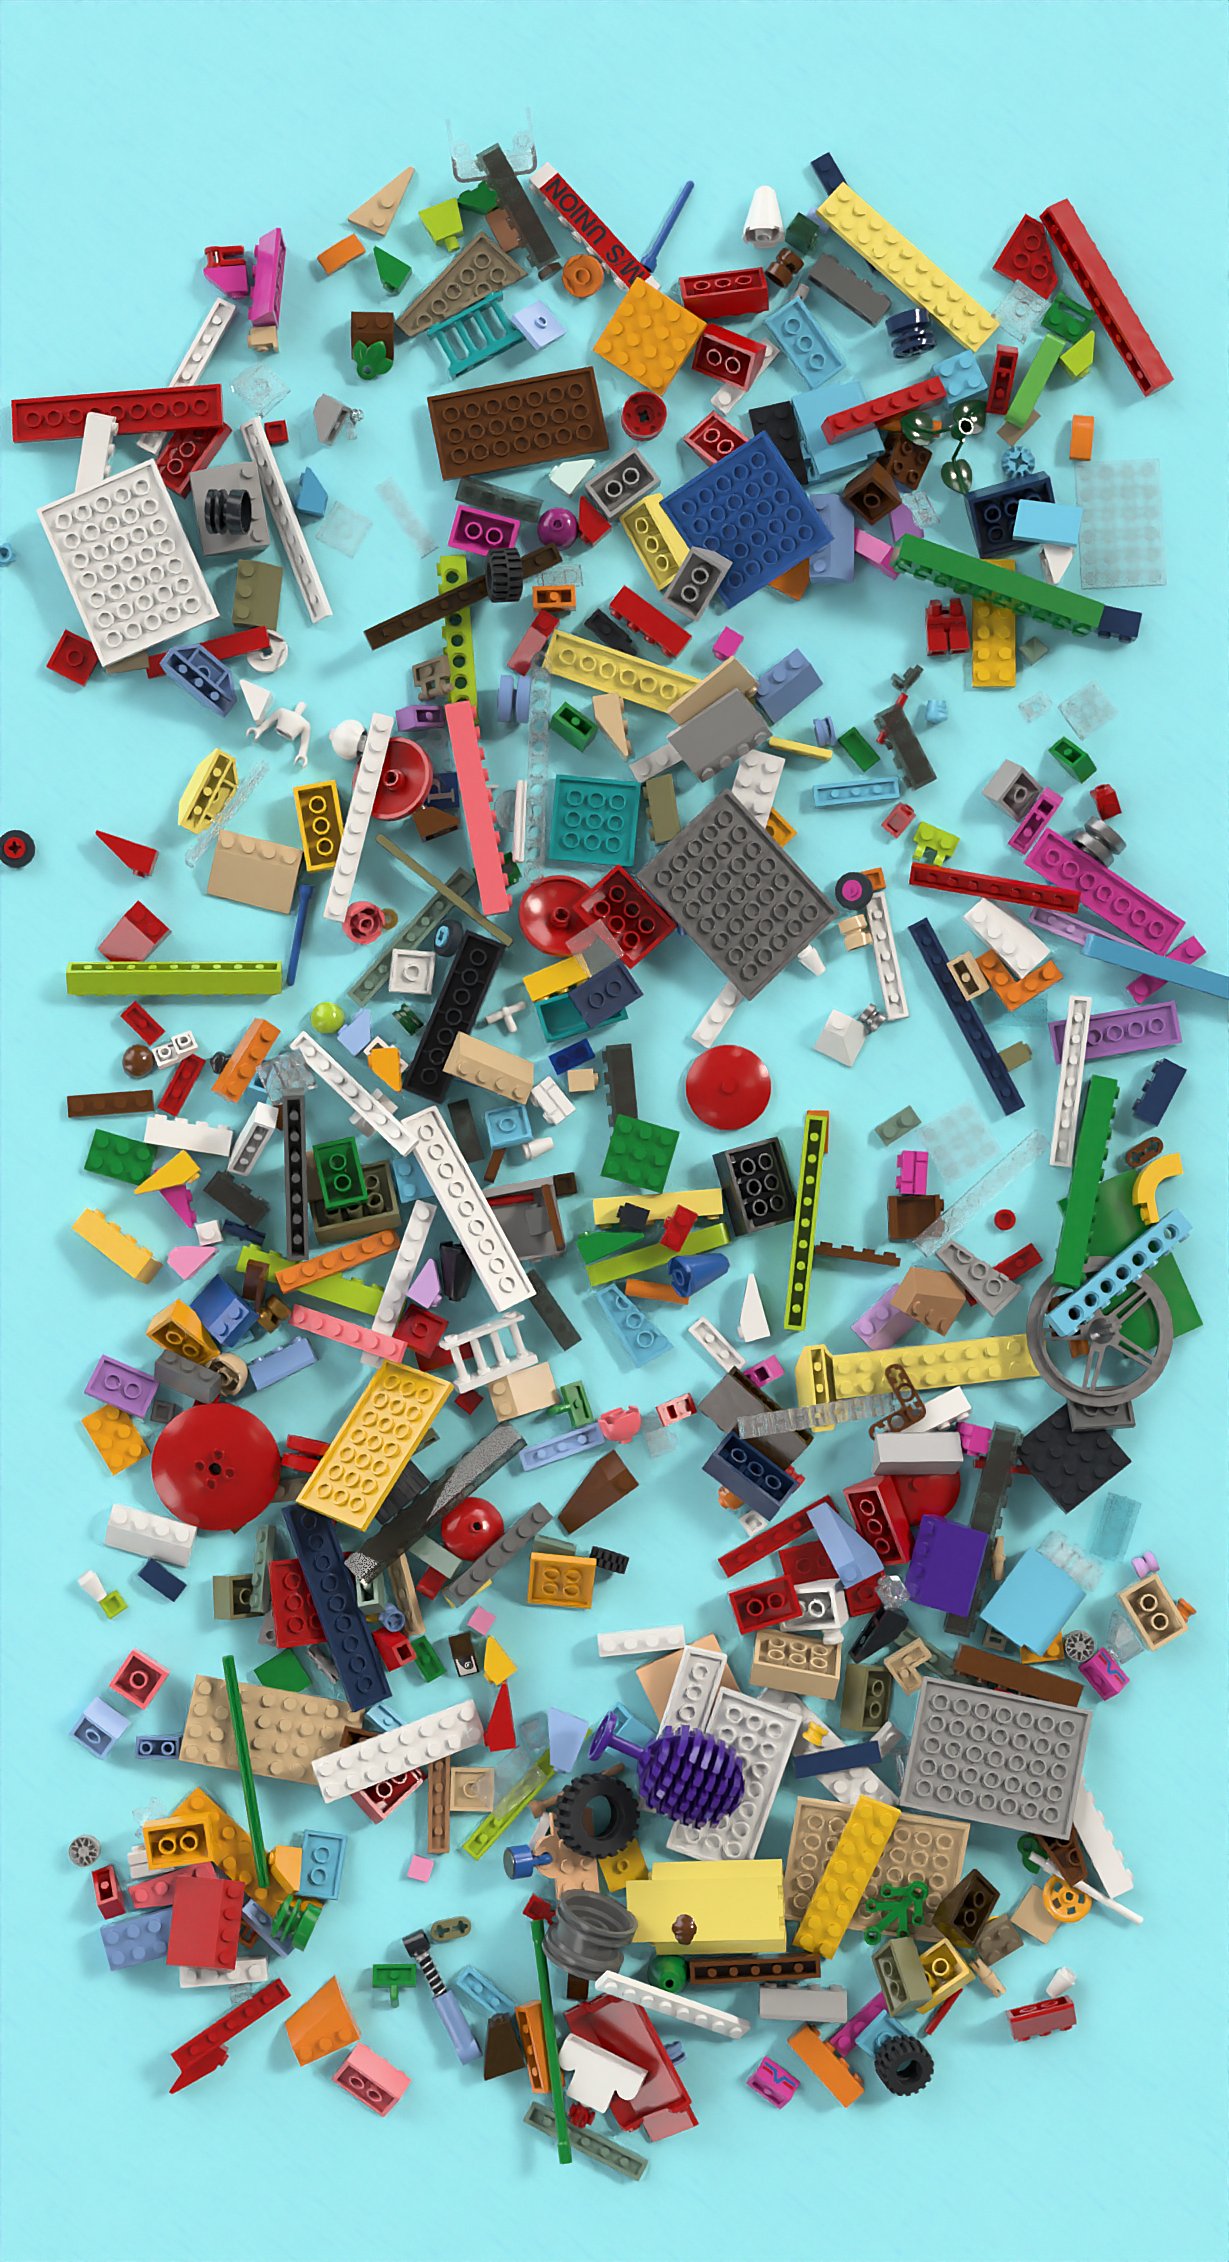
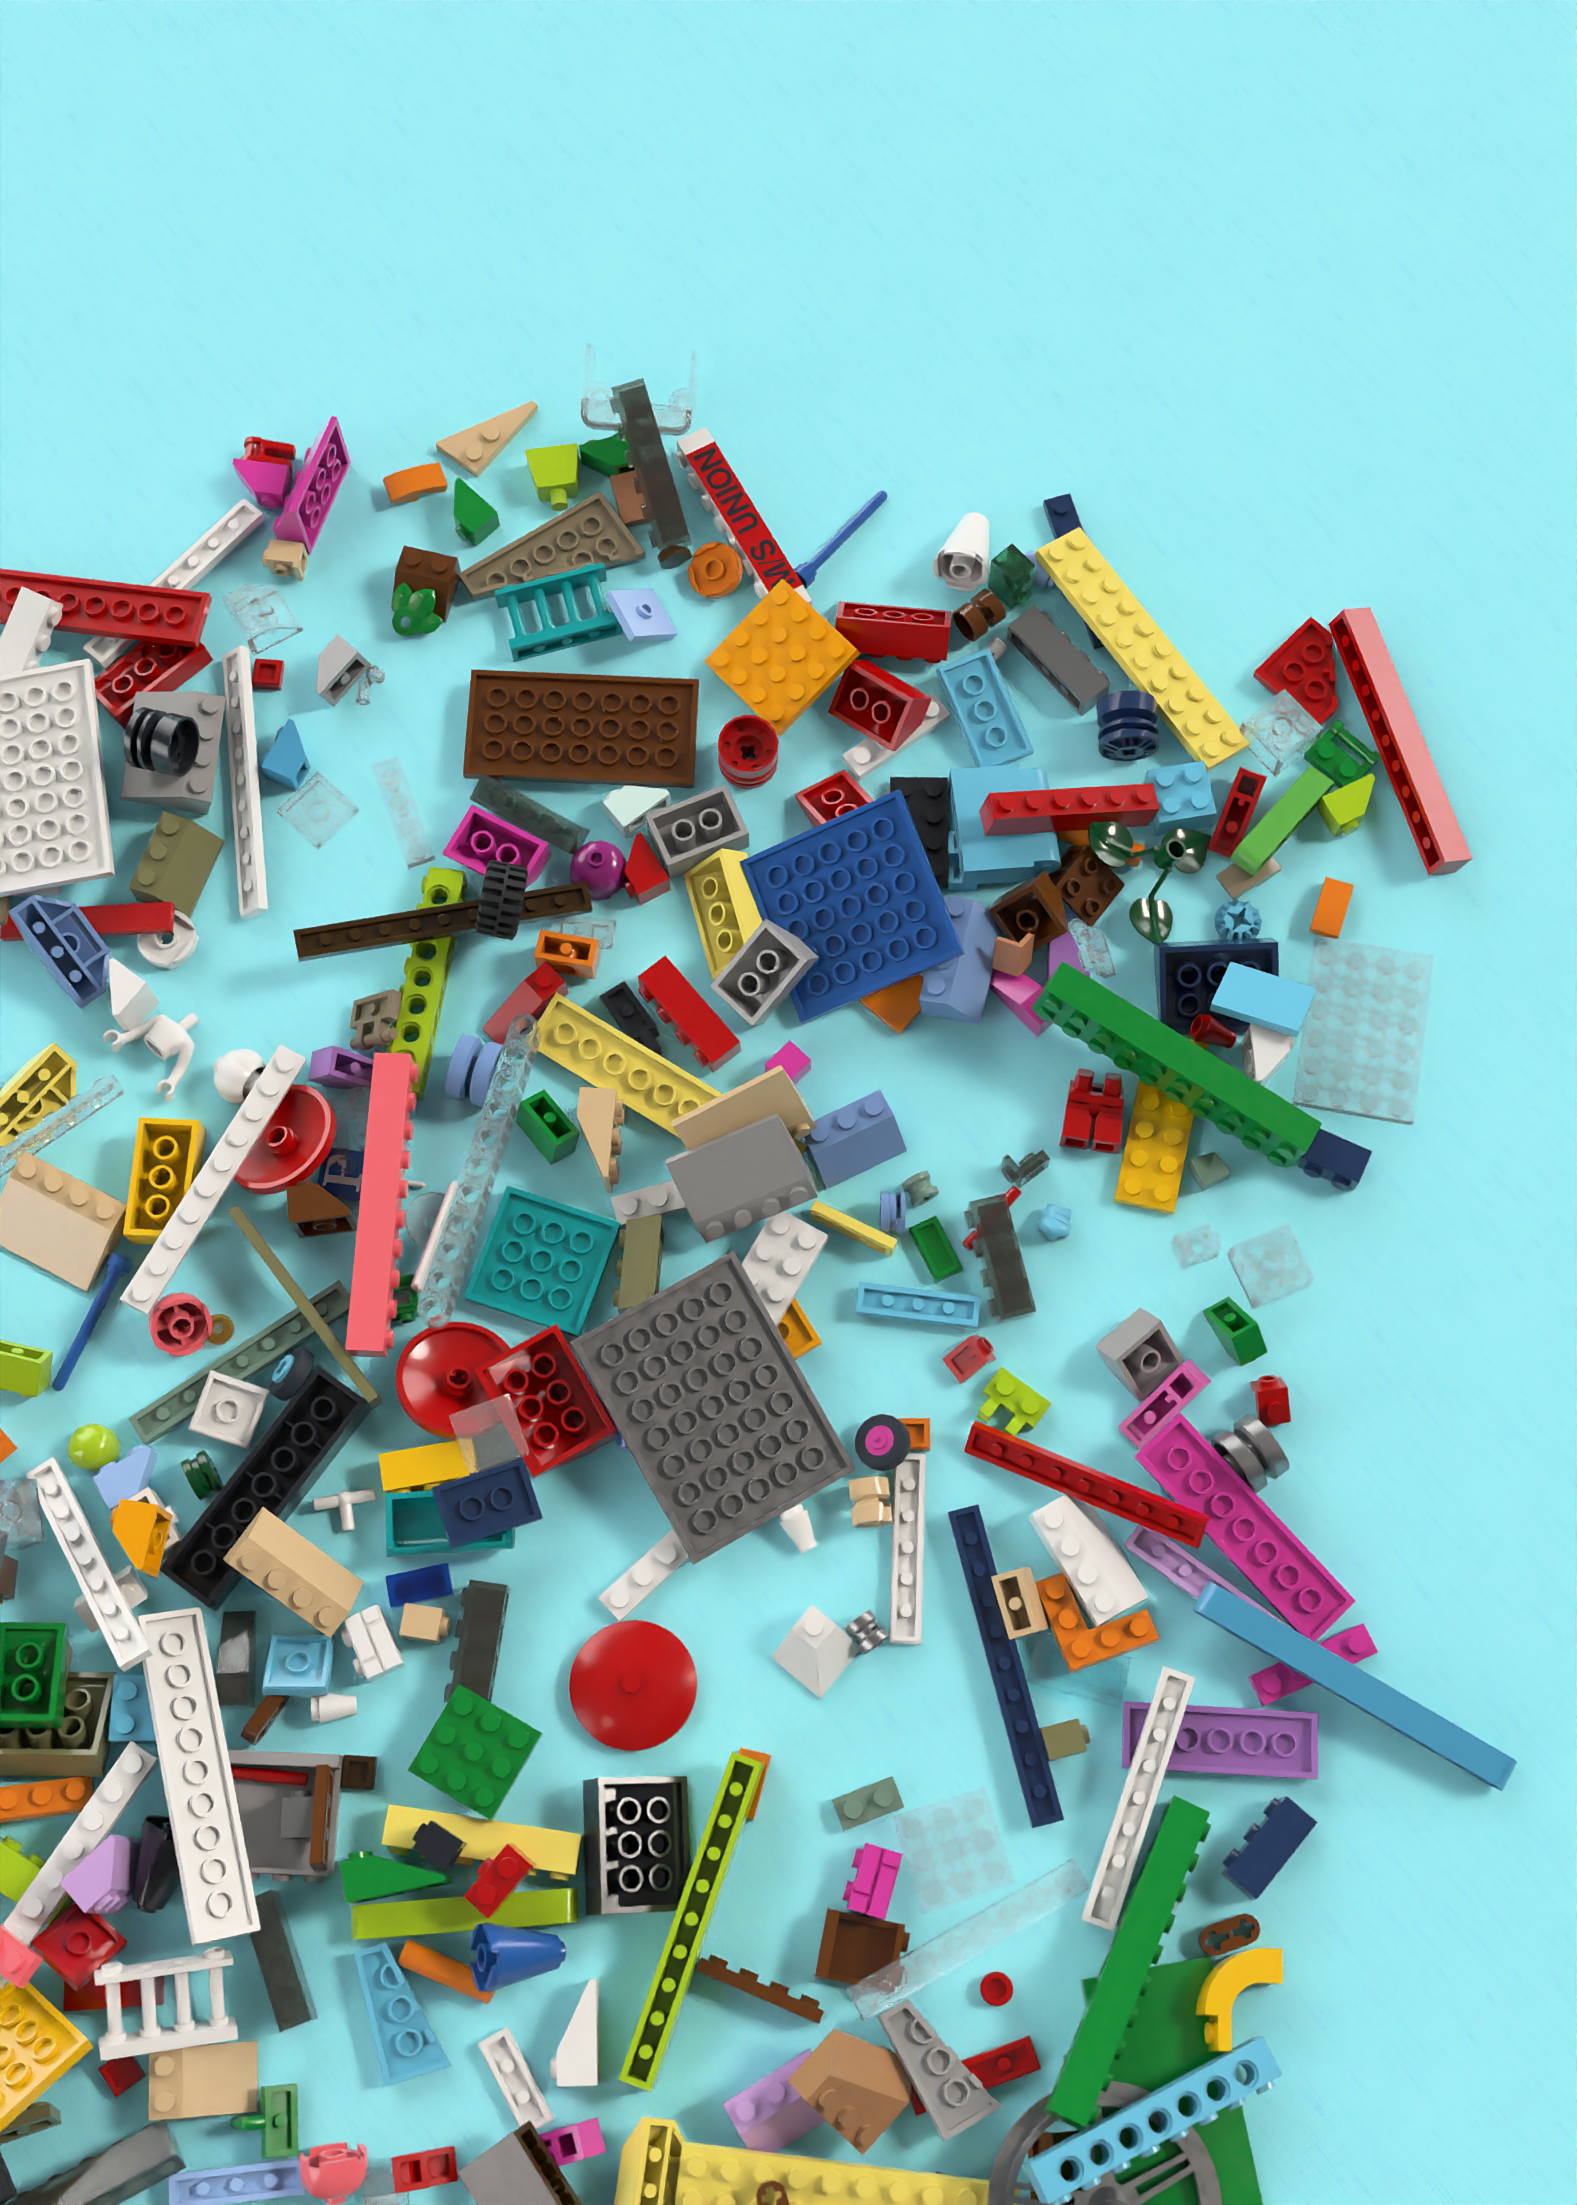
camera: 20 degrees right, 15 degrees down
(839, 710) = (920, 1188): none -> sand green wheel
(866, 529) = (1013, 956): none -> nougat panel
(1014, 550) = (1210, 1031): none -> red cone

